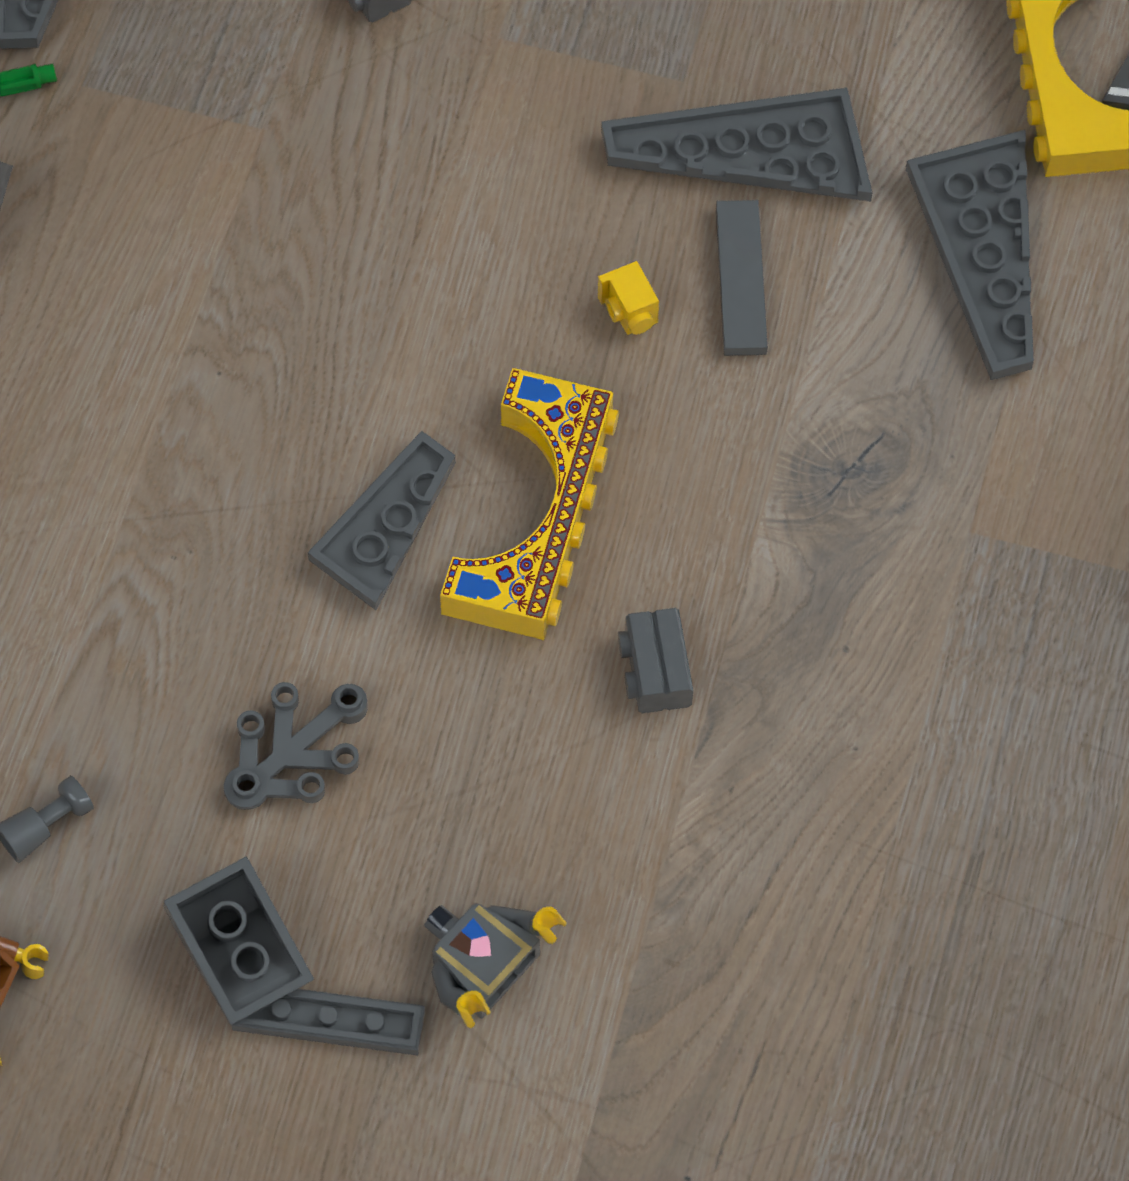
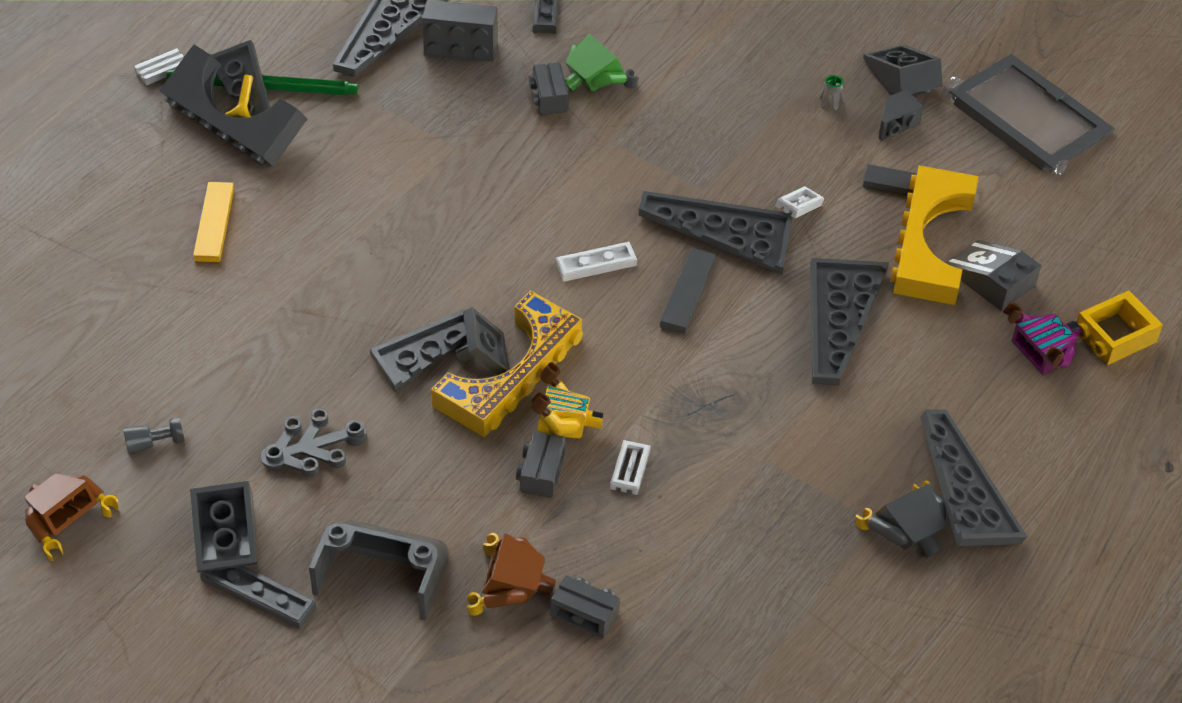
camera: 20 degrees right, 15 degrees down
(482, 485) = (483, 342): none -> dark grey tile
(485, 953) = (363, 583): dark grey torso -> none
(547, 867) = (384, 543): none -> dark grey windscreen
(577, 272) = (596, 261): none -> white tile
(629, 298) = (616, 279): yellow brick -> none
(652, 560) = (563, 411): none -> yellow torso
(696, 857) = (511, 575): none -> dark orange torso
(788, 649) = (626, 484): none -> white tile
(822, 871) = (585, 605): none -> dark grey brick
(841, 78) = (802, 204): none -> white tile

